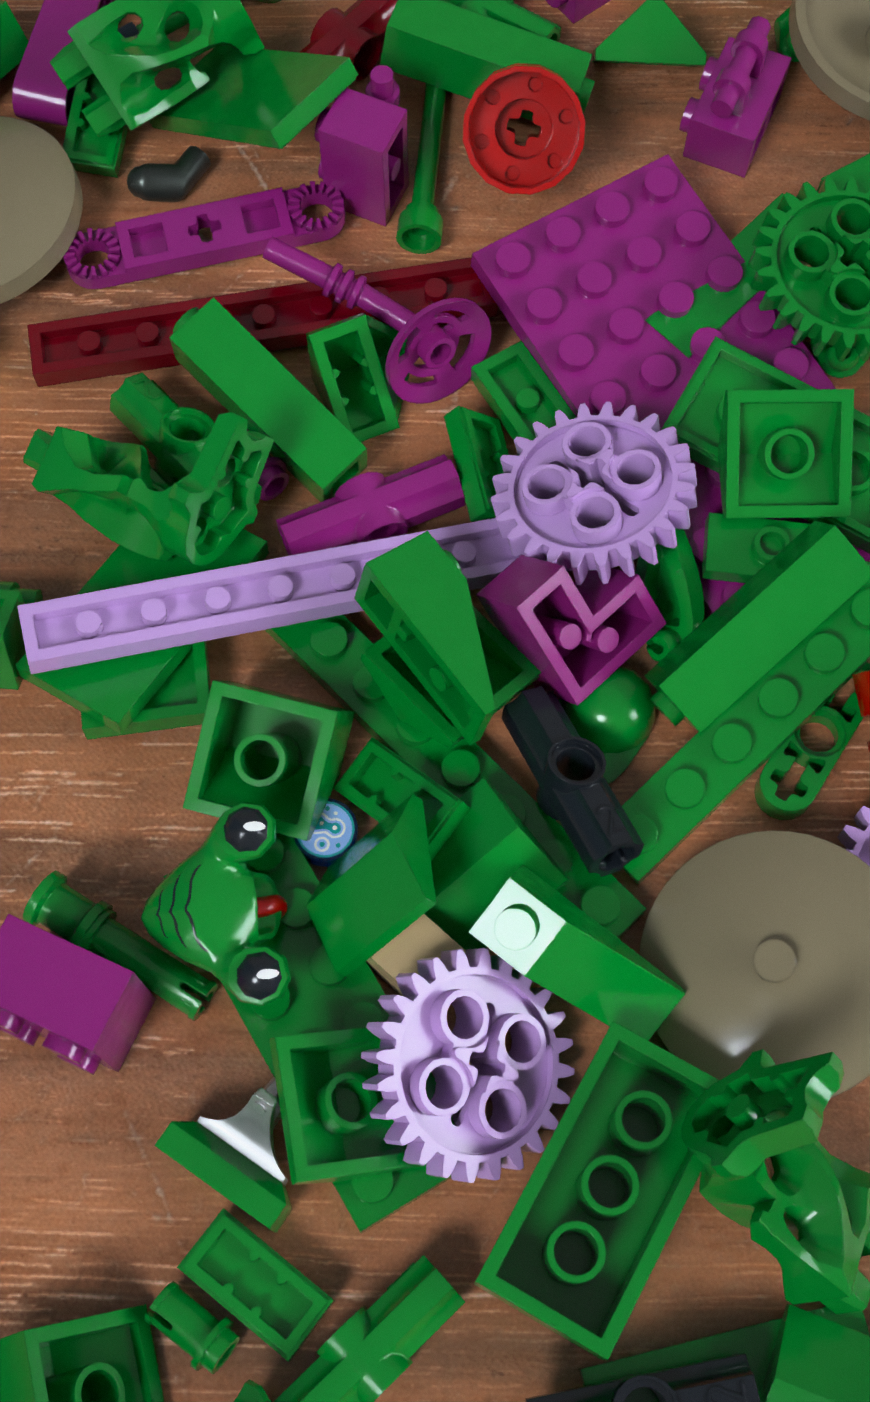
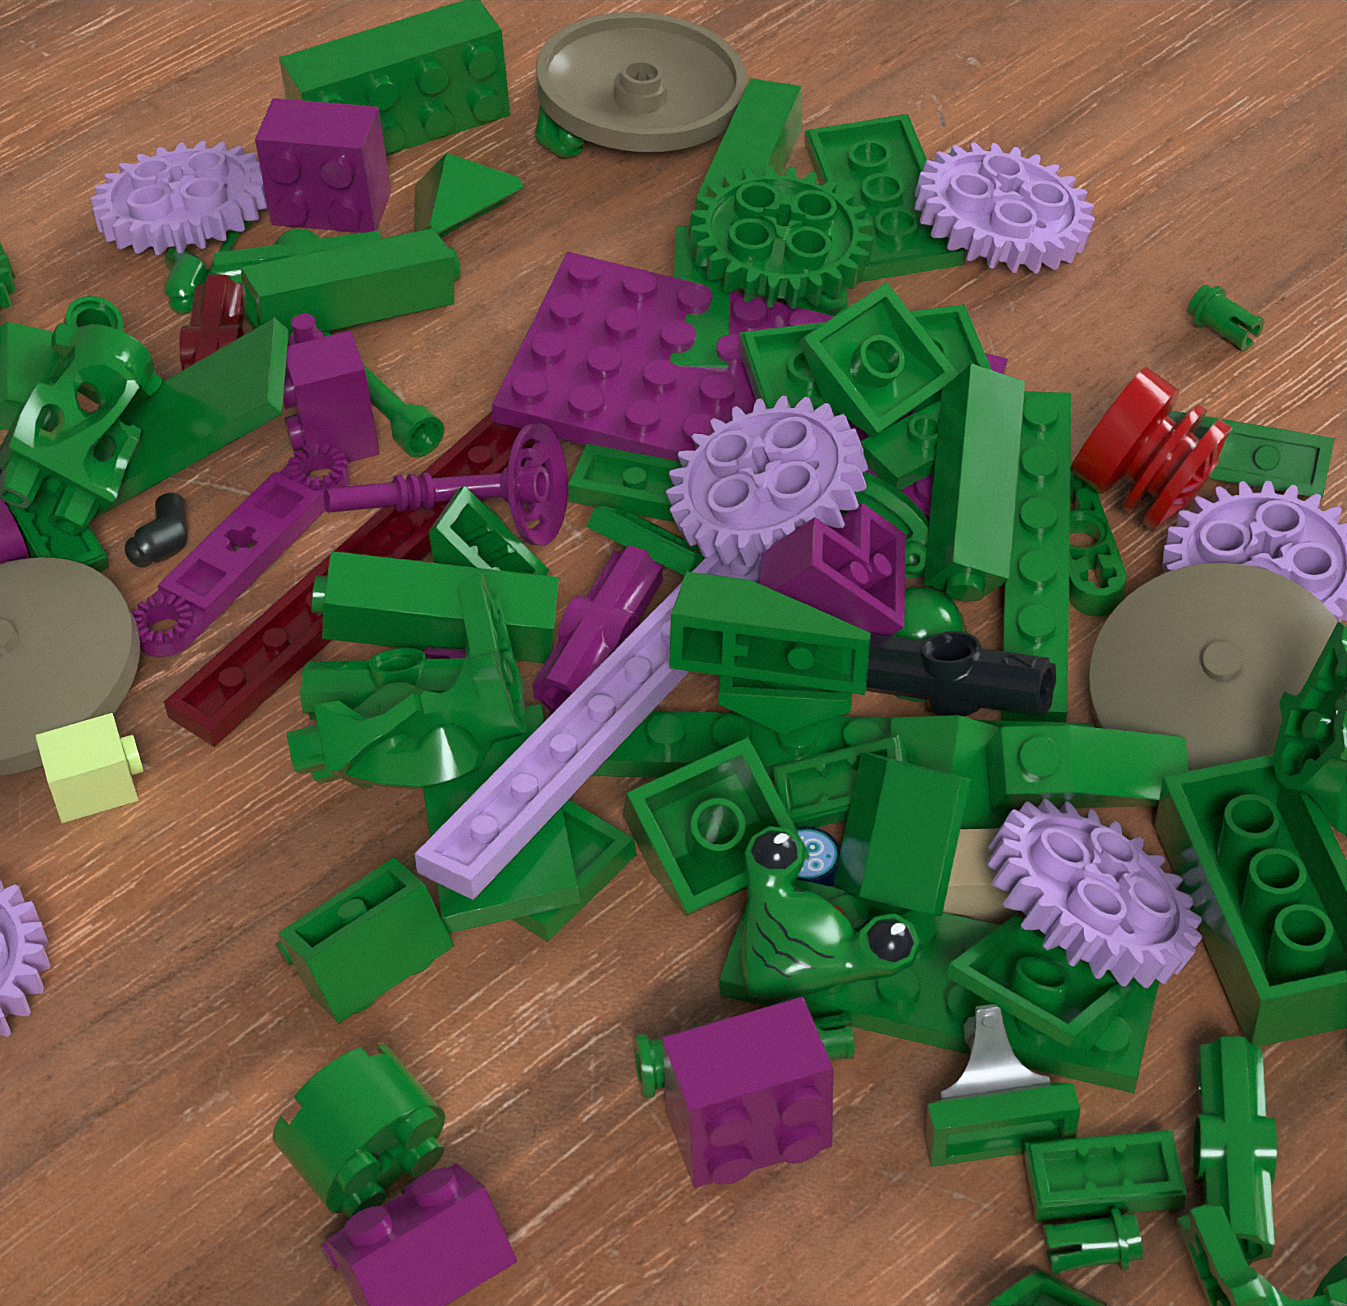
camera: 40 degrees left, 20 degrees down
(543, 156) = (467, 282): red wheel -> none
(735, 101) = (570, 196): magenta brick -> none

